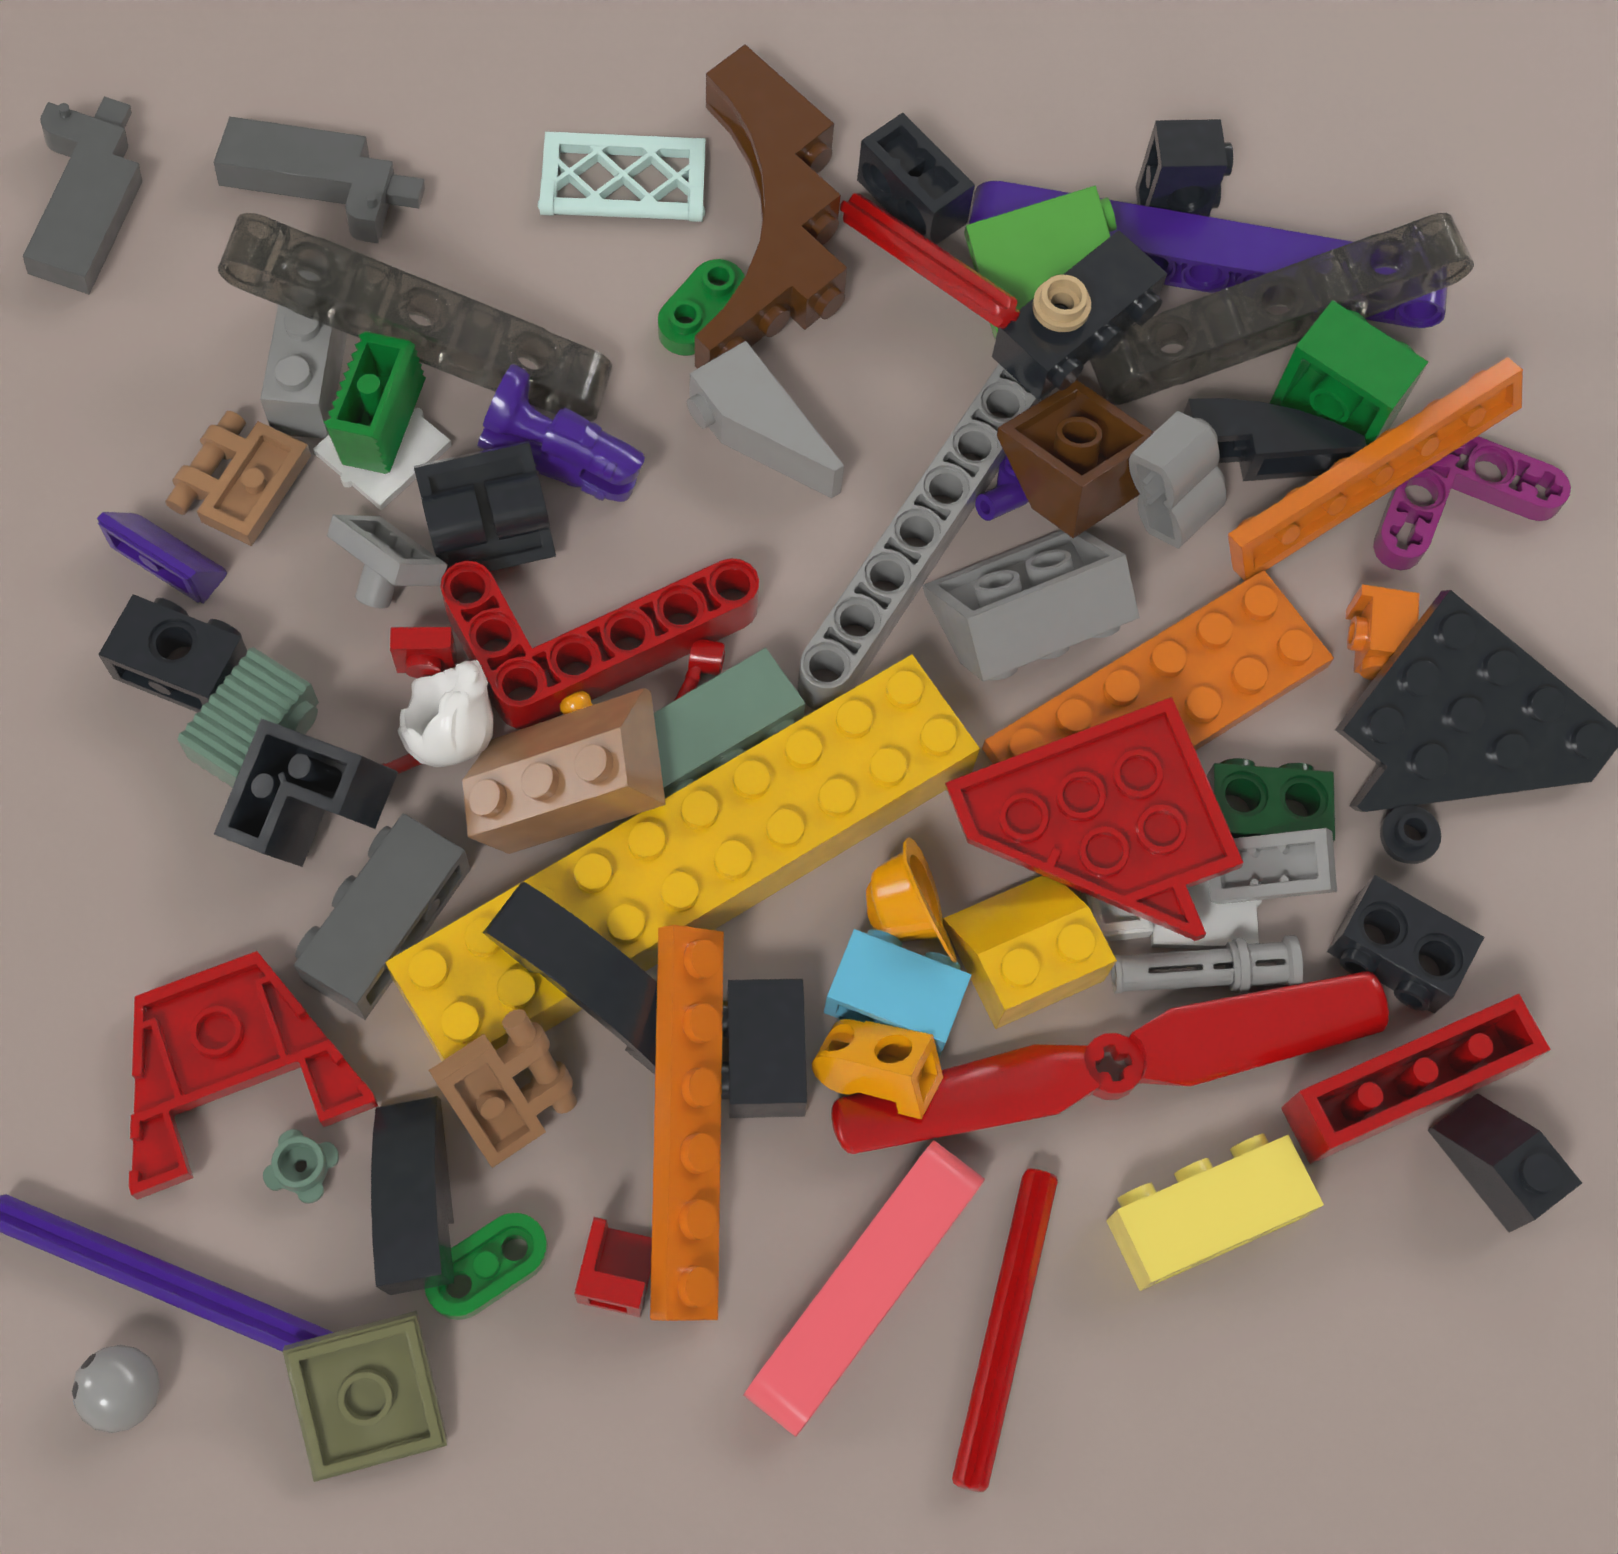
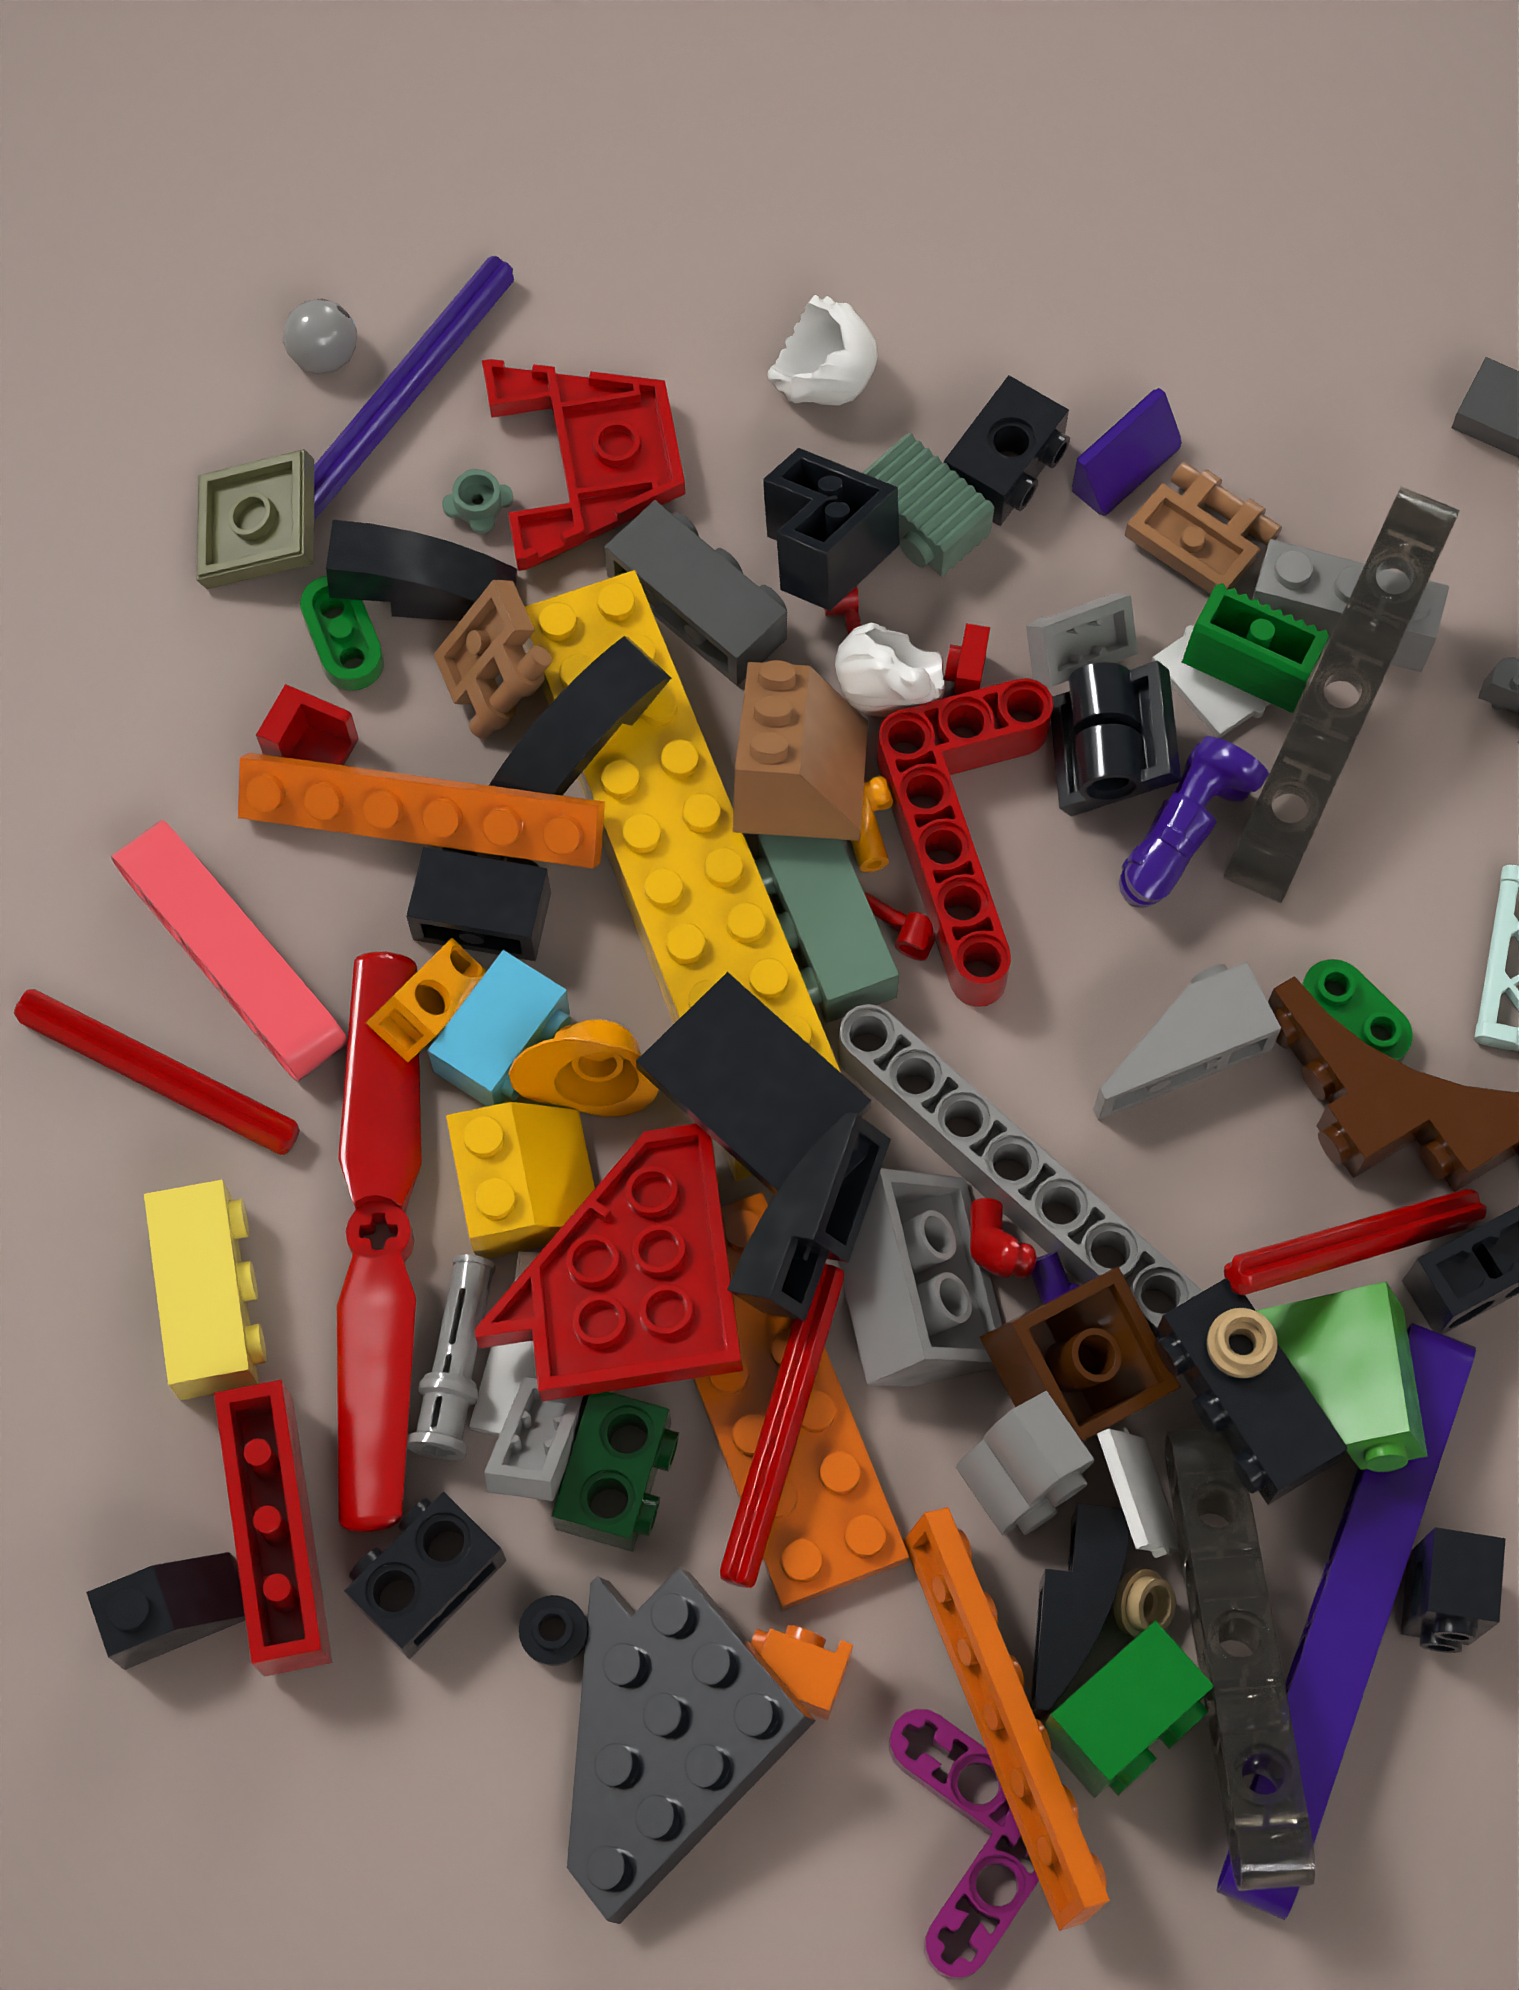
camera: 110 degrees right, 0 degrees up
(85, 841) = (826, 356): none -> white hair
(917, 735) = (749, 1081): none -> black tile
(989, 543) = (993, 1247): none -> red arm
(1036, 664) = (811, 1219): none -> black slope
(1178, 396) = (1139, 1491): none -> white piece
(1195, 673) = (780, 1434): none -> red axle
(1247, 388) = (1142, 1600): none -> tan plate

